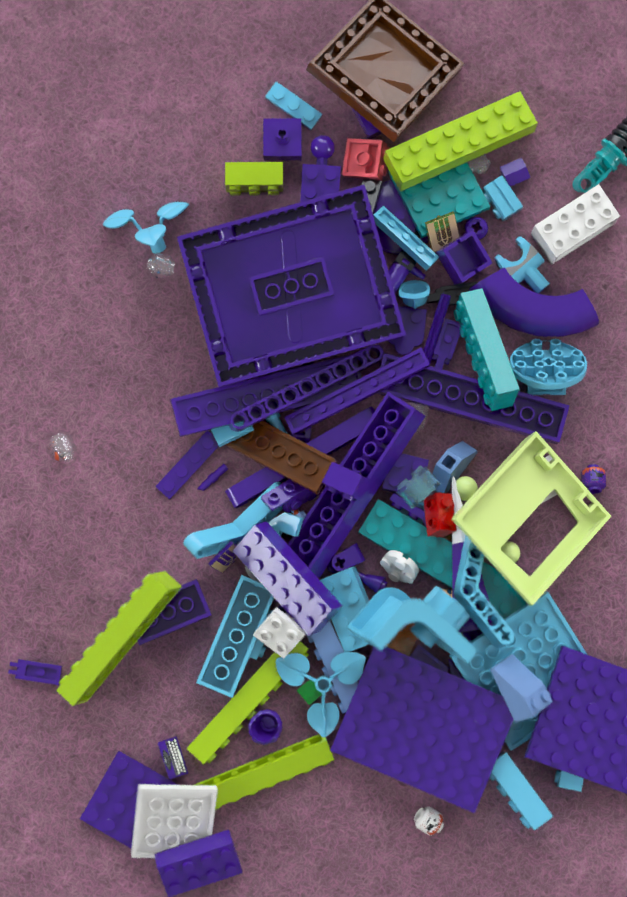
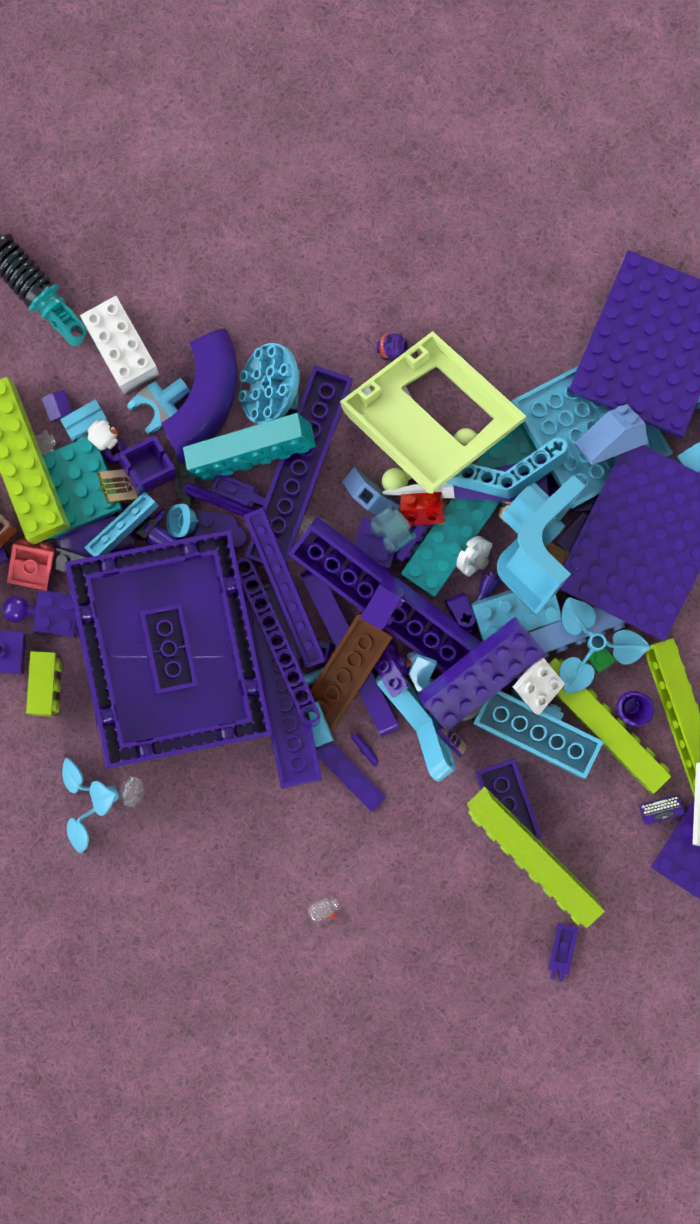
camera: 85 degrees left, 0 degrees up
(489, 214) = (102, 435): none -> white head

